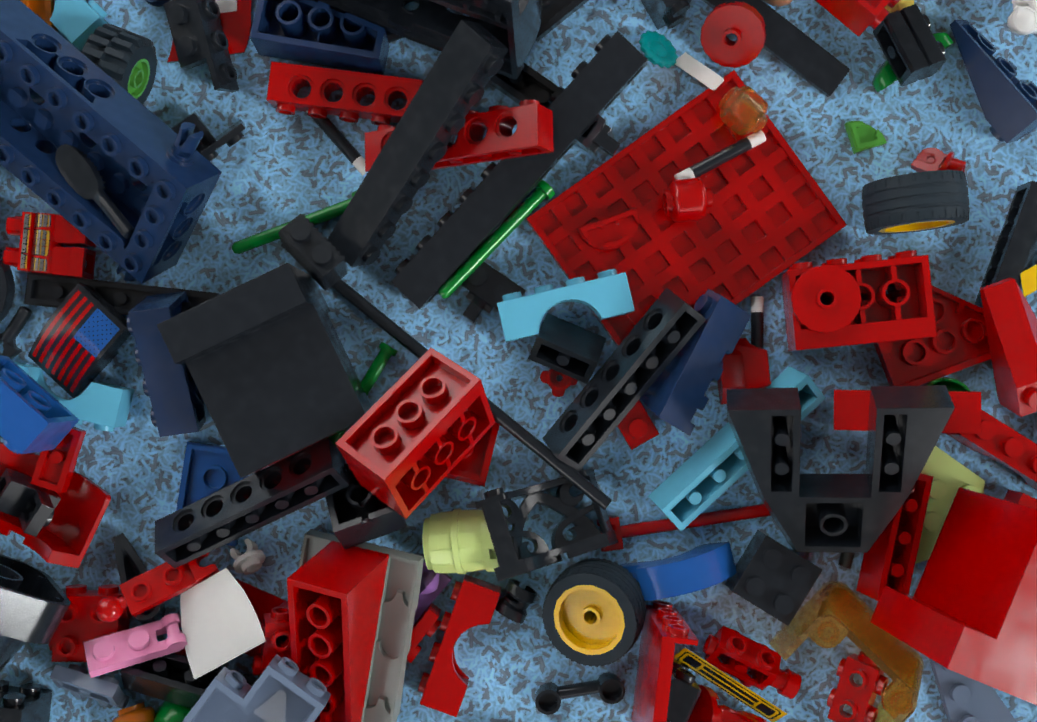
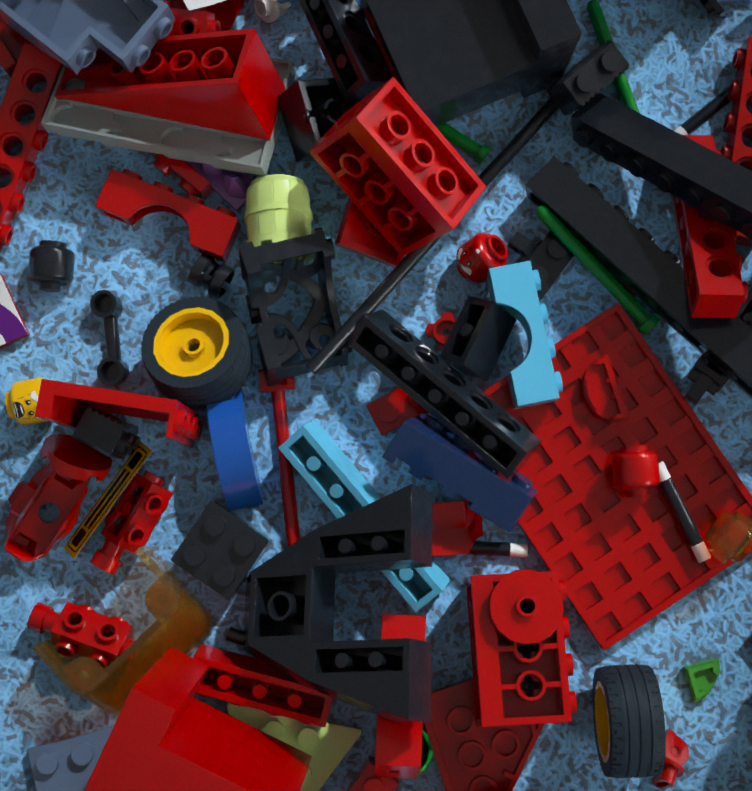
camera: 90 degrees right, 5 degrees down
(489, 347) = (479, 255): none -> red head

